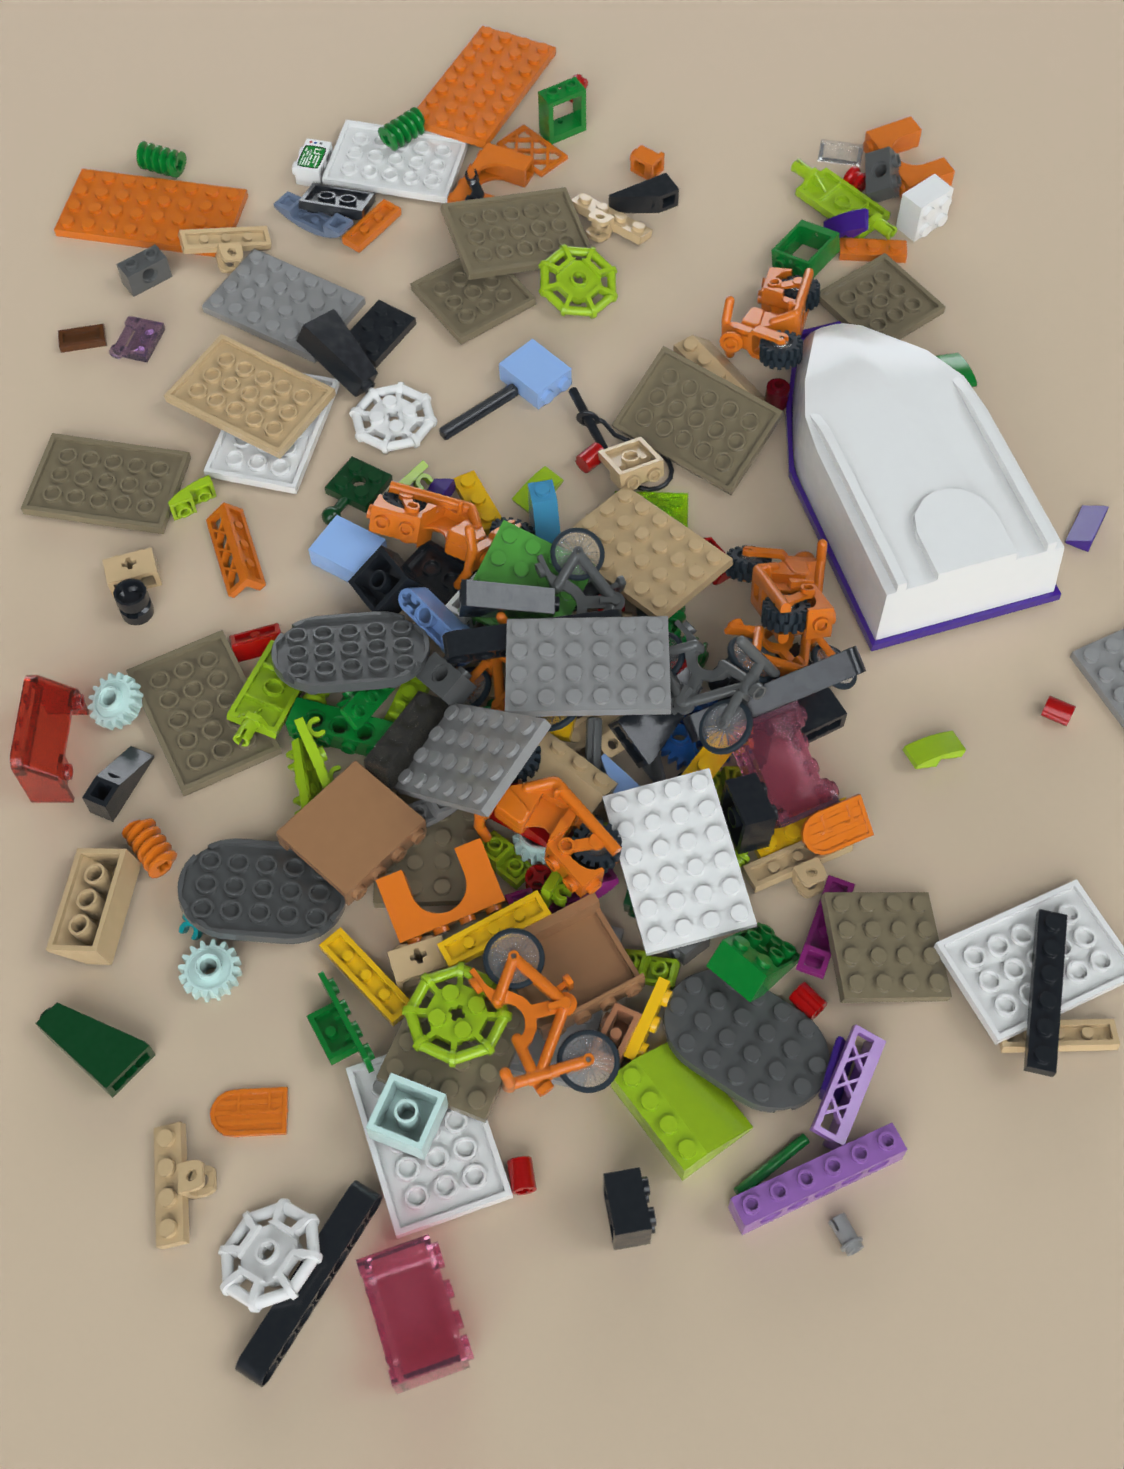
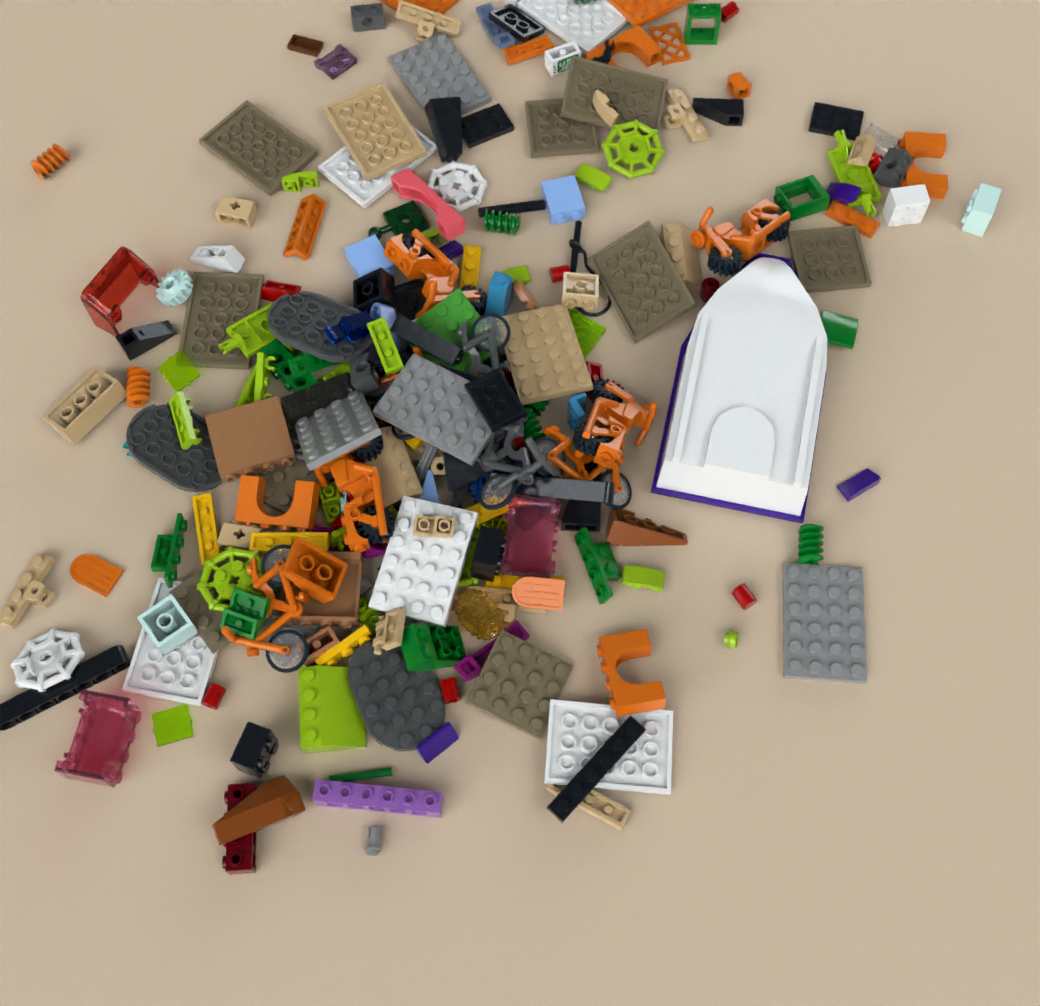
camera: 30 degrees right, 5 degrees up
(97, 1048) = (34, 489): dark green slope -> none
(133, 601) = (223, 230): black wheel -> none
(147, 638) = (221, 258): none -> white slope
(192, 800) = (179, 371): none -> clear neon green piece
(207, 957) = (114, 478): light aqua gear -> none
(249, 854) = (183, 420): none -> lime plate
(340, 440) = (411, 187): none -> coral arch
(396, 632) = (349, 328): none -> clear blue piece
(422, 216) = (559, 58): none -> white brick
(468, 626) = (385, 346): none -> lime plate
(481, 429) = (502, 222): none -> green piece
(490, 1244) = (172, 725): none -> clear neon green piece
(507, 1041) = (245, 613): none -> green slope
(523, 251) = (607, 113): none -> tan slope
(557, 333) = (593, 177): none -> lime slope
(562, 942) = (314, 570): none -> orange slope
(573, 499) = (524, 294): none -> nougat tile
(652, 621) = (495, 400): none -> black plate
(670, 812) = (433, 526): none -> tan slope
(674, 1318) = (241, 852): none -> dark red brick
(691, 1271) = (264, 807): none -> dark orange wedge
(702, 963) = (389, 630): none -> tan plate
(729, 601) = (576, 410): none -> dark azure bracket
(777, 154) = (828, 119): none -> black plate
(787, 882) = (479, 614): none -> clear yellow gear
(835, 171) = (862, 150): none -> tan slope
(853, 1089) = (438, 760): medium lavender fence -> none
(872, 762) = (598, 563): none -> green bracket
(884, 705) = (631, 531): none -> dark orange wedge
(1004, 177) = (980, 209): none -> light aqua brick
(1017, 891) = (628, 697): none -> orange arch
(1078, 765) = (731, 639): none -> lime plate
(1087, 617) = (810, 544): none -> green piece

